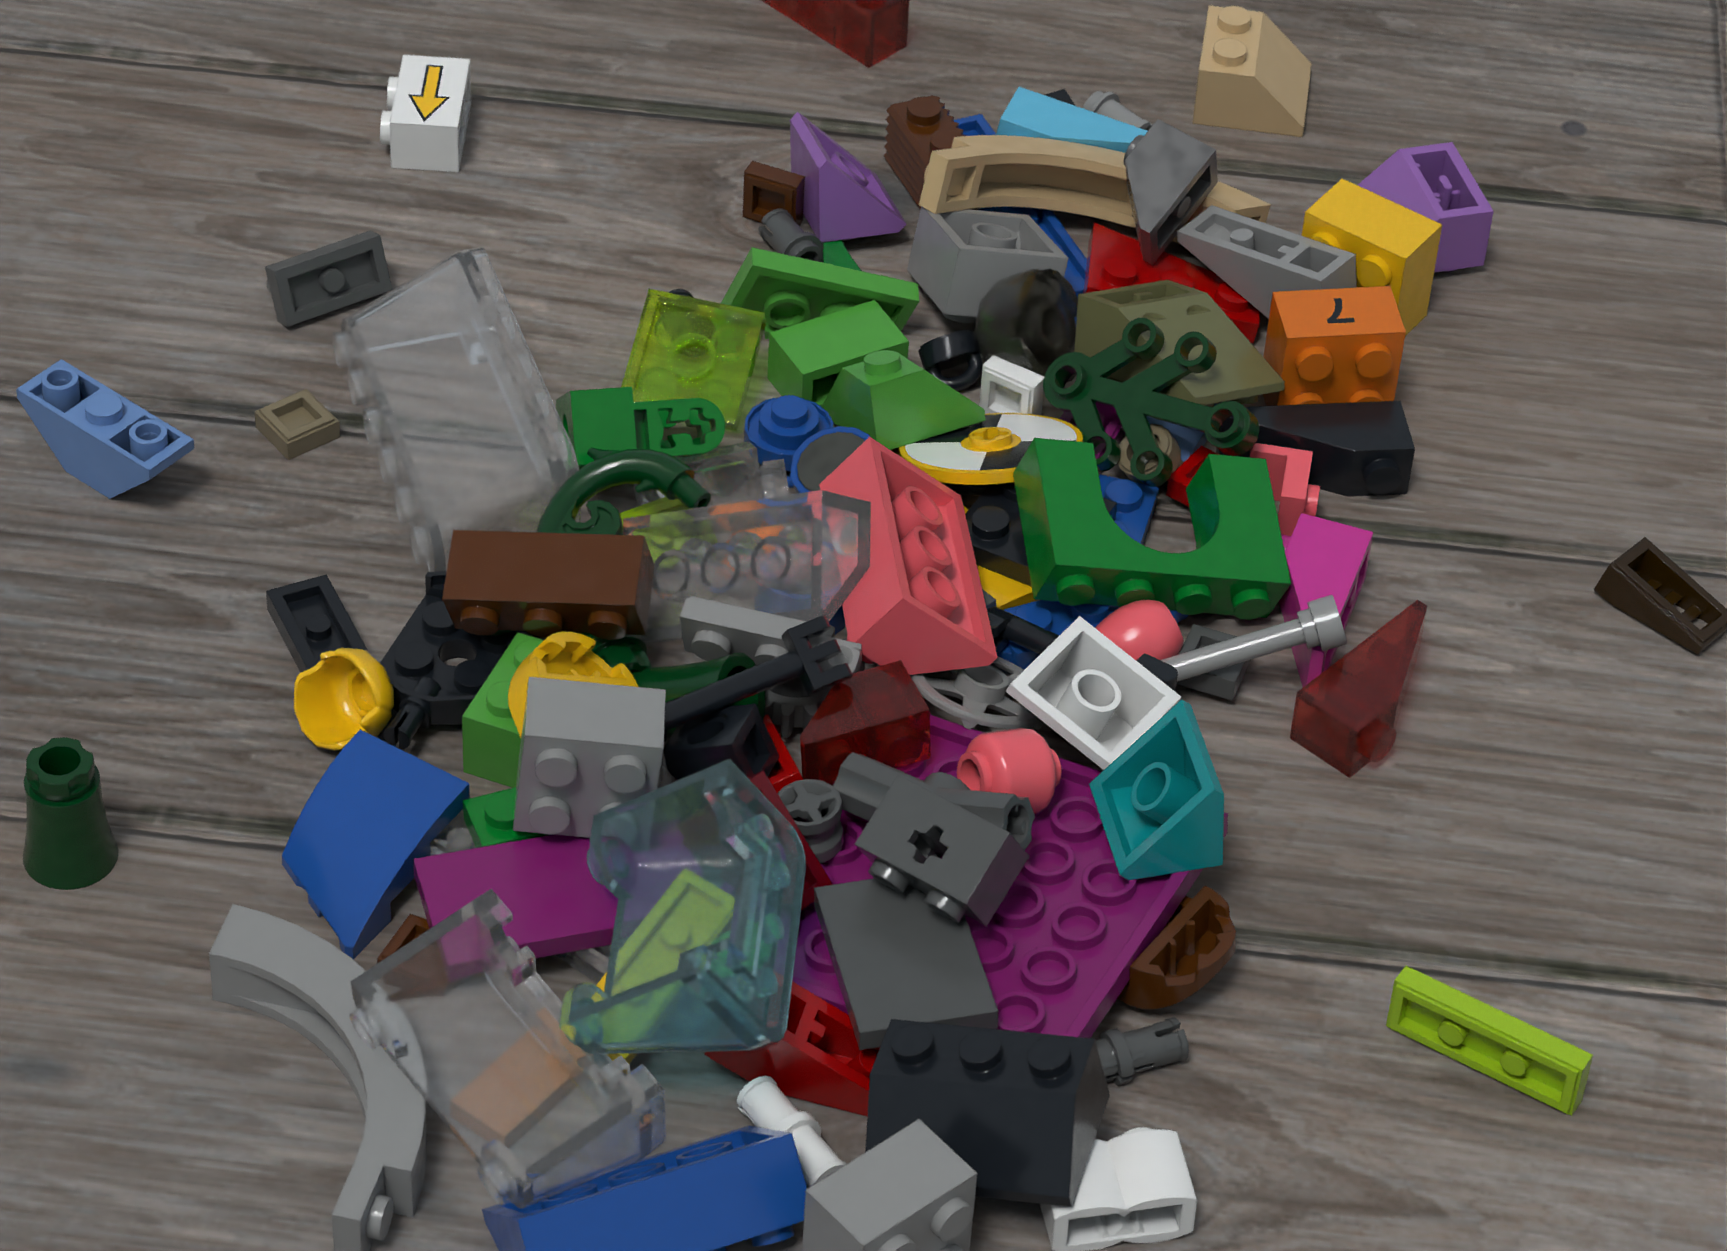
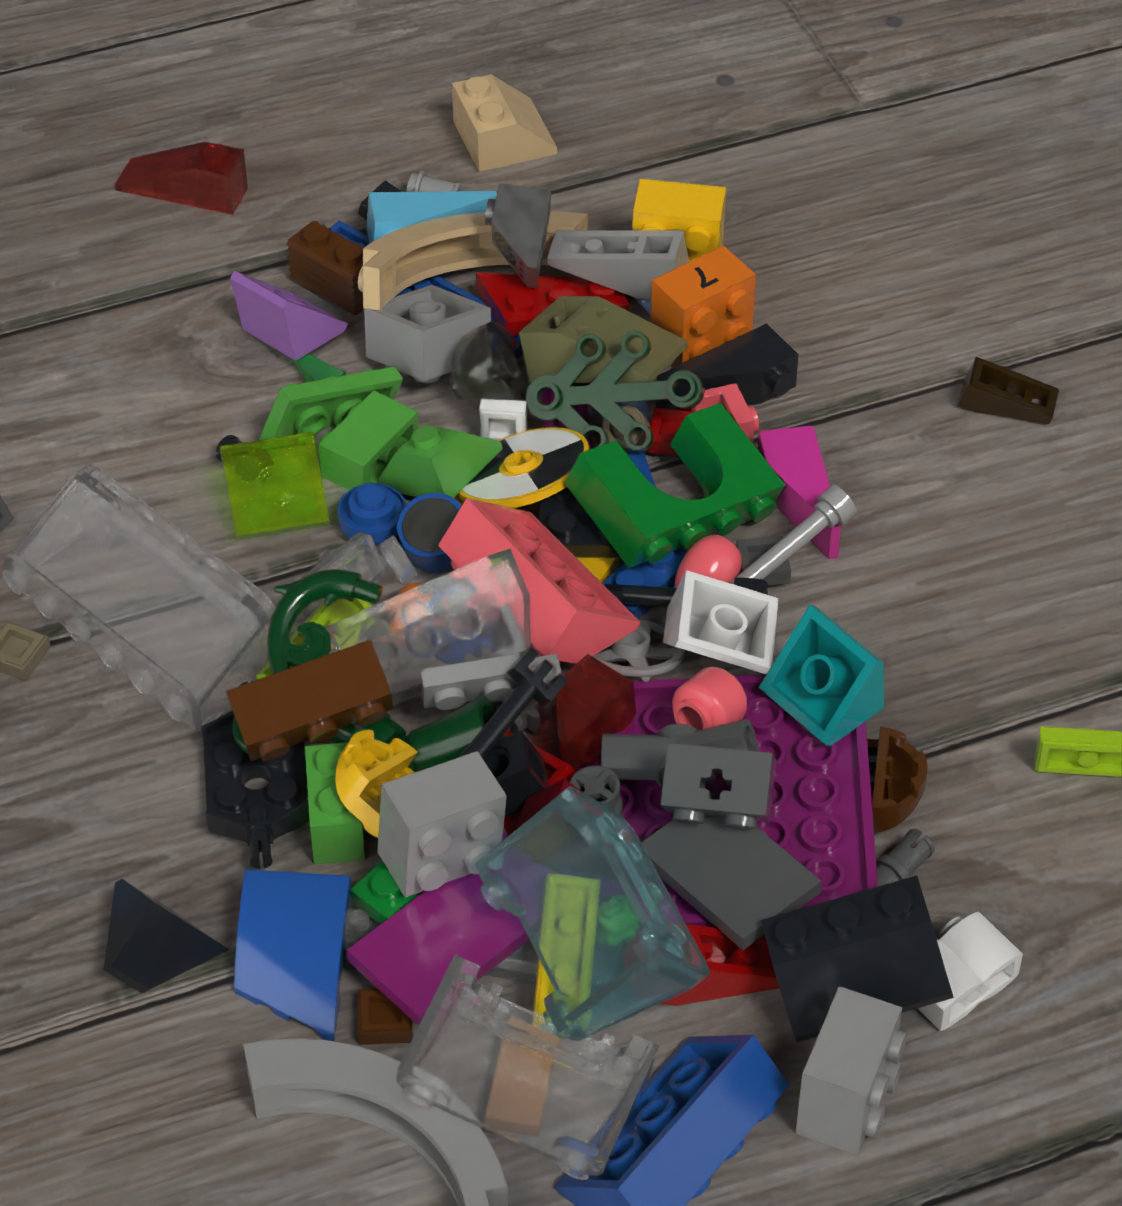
camera: 25 degrees left, 5 degrees up
(66, 818) = (72, 1035): dark green plant -> none
(224, 768) = (151, 941): none -> black slope
(311, 620) = (147, 805): black plate -> none
(341, 696) = (205, 850): yellow hair -> none
(614, 422) = (283, 556): green brick -> none
(772, 189) = (242, 339): reddish brown tile -> none
(772, 1110) = (706, 1021): white pin -> none
(789, 237) = (274, 367): dark grey pin -> none
(952, 351) = (443, 405): black tile -> none
(1355, 704) = (878, 546): clear red slope -> none
(1440, 187) = (684, 158): medium lavender slope -> none

